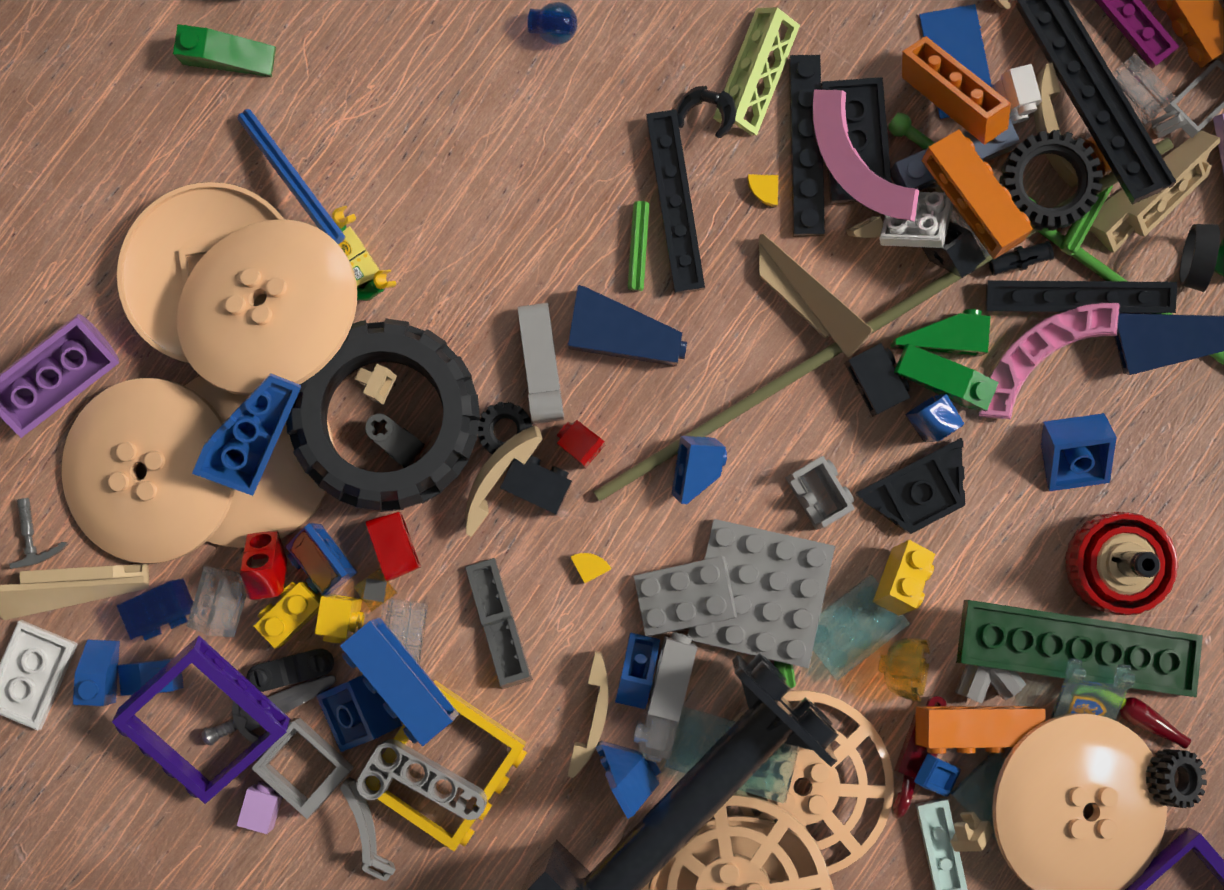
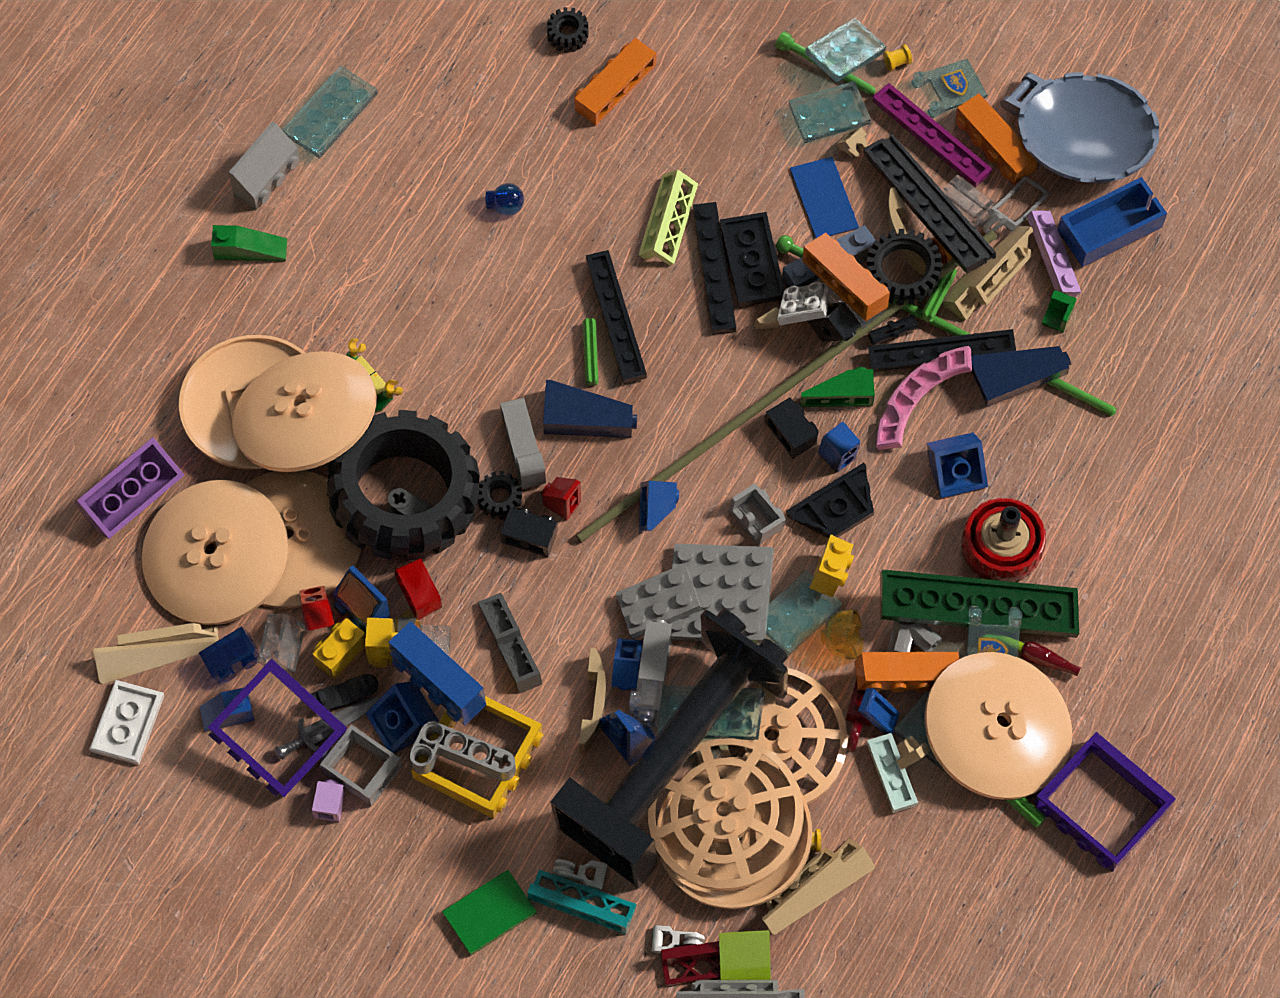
camera: 10 degrees left, 20 degrees down
(27, 532) = (117, 613): dark grey piece -> none
(97, 673) = (184, 714): blue slope -> none
(246, 440) = (299, 503): blue wedge -> none
(290, 175) = (308, 322): blue axle -> none
(367, 832) = (410, 788): light grey sword -> none
(377, 382) = (399, 447): tan tile -> none
(518, 447) = (483, 553): tan slope -> none
(590, 566) = (579, 590): yellow tile -> none
(700, 94) = (624, 239): black piece -> none
(764, 188) = (685, 301): yellow tile -> none
(810, 298) = (731, 372): tan wedge -> none
(847, 165) = (747, 274): bright pink tile -> none
(947, 377) = (859, 418): green slope -> none
(955, 90) = (821, 210): orange brick -> none
(1021, 90) = (871, 210): white brick -> none
(1189, 778) = (1079, 687): black tyre -> none
(1199, 256) = (1028, 311): black tyre -> none

